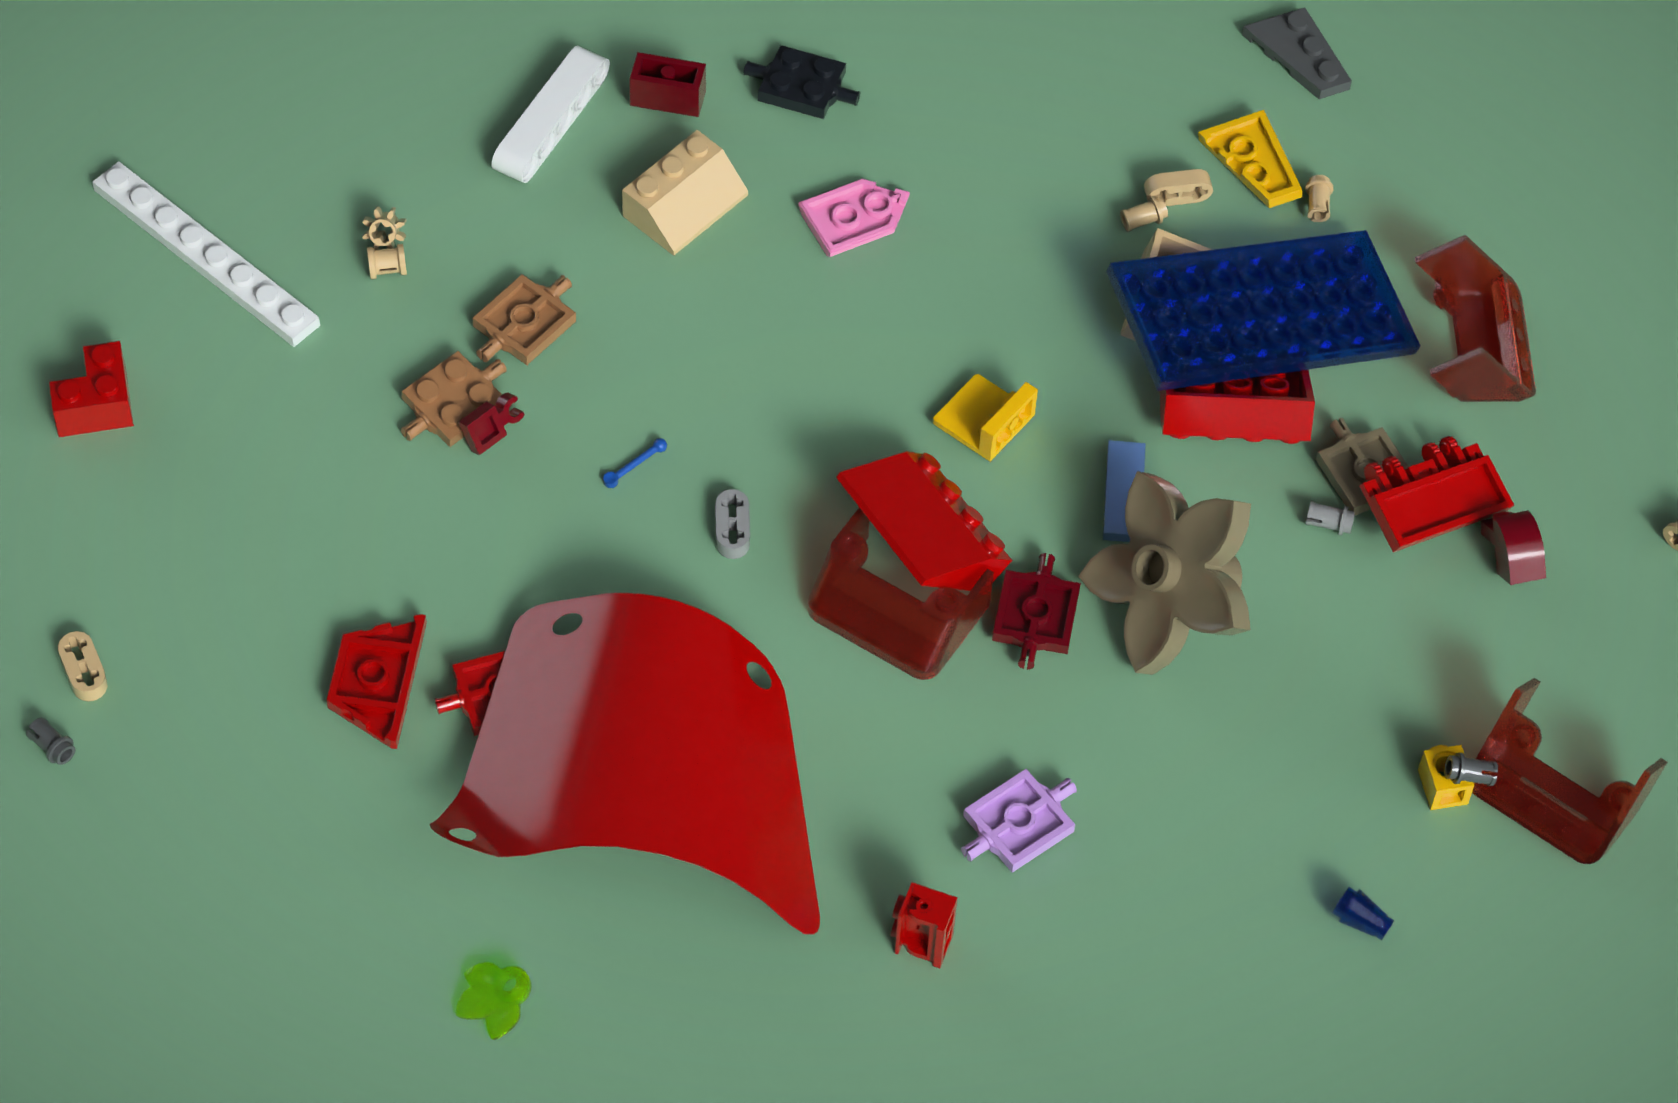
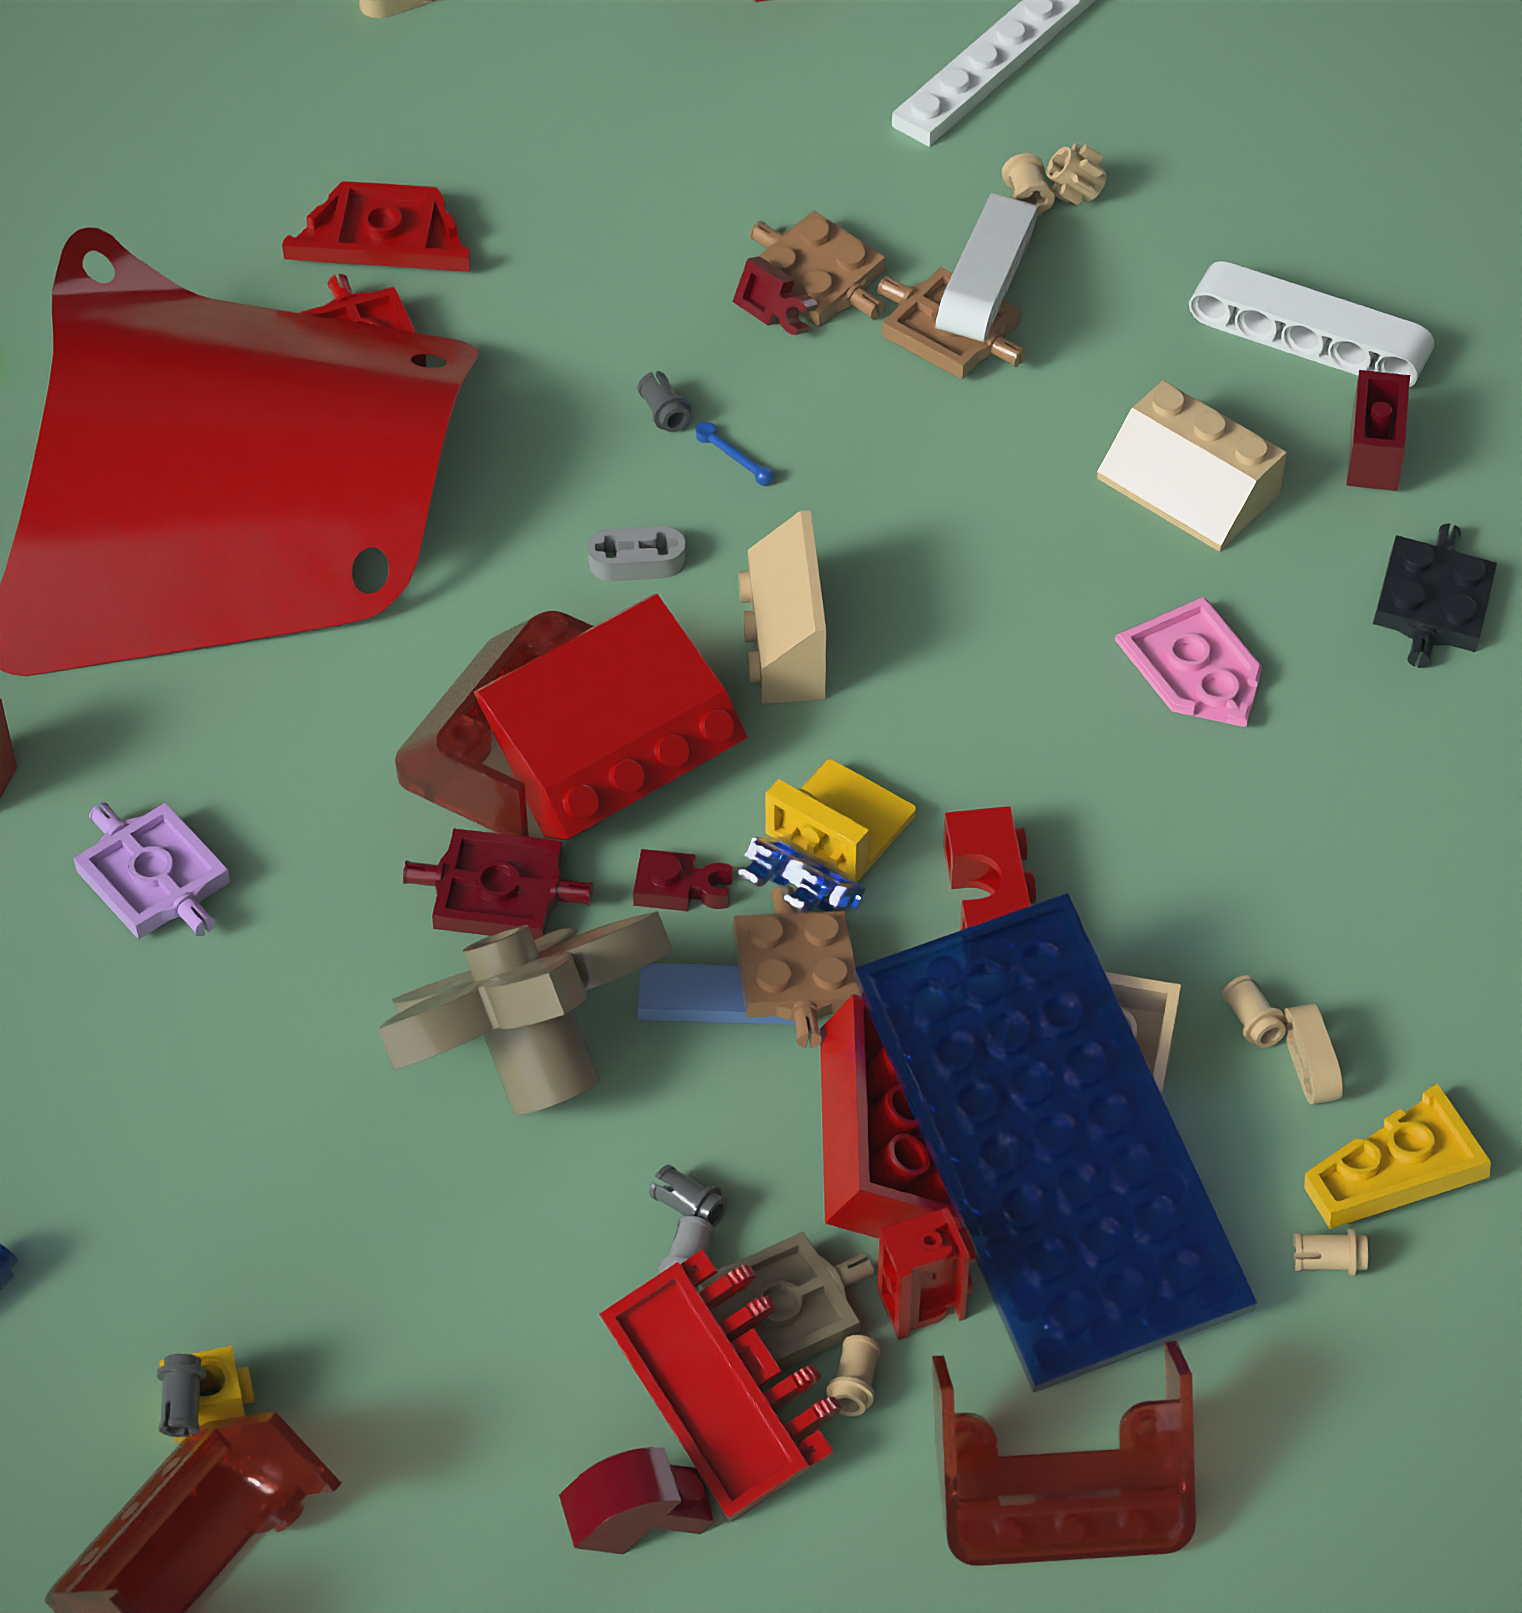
camera: 90 degrees right, 5 degrees down
(490, 282) = (986, 267): none -> white beam
(586, 498) = (669, 410): none -> dark grey pin
(814, 423) = (785, 614): none -> tan slope
(1029, 514) = (672, 879): none -> dark red plate
(1032, 437) = (816, 883): none -> clear blue plate
(1078, 330) = (987, 854): none -> red arch
(1114, 441) = (794, 964): none -> medium nougat plate
(1293, 508) = (688, 1196): none -> dark grey pin
(1358, 385) = (924, 1270): none -> red hinge
(1412, 435) = (855, 1375): none -> tan pin

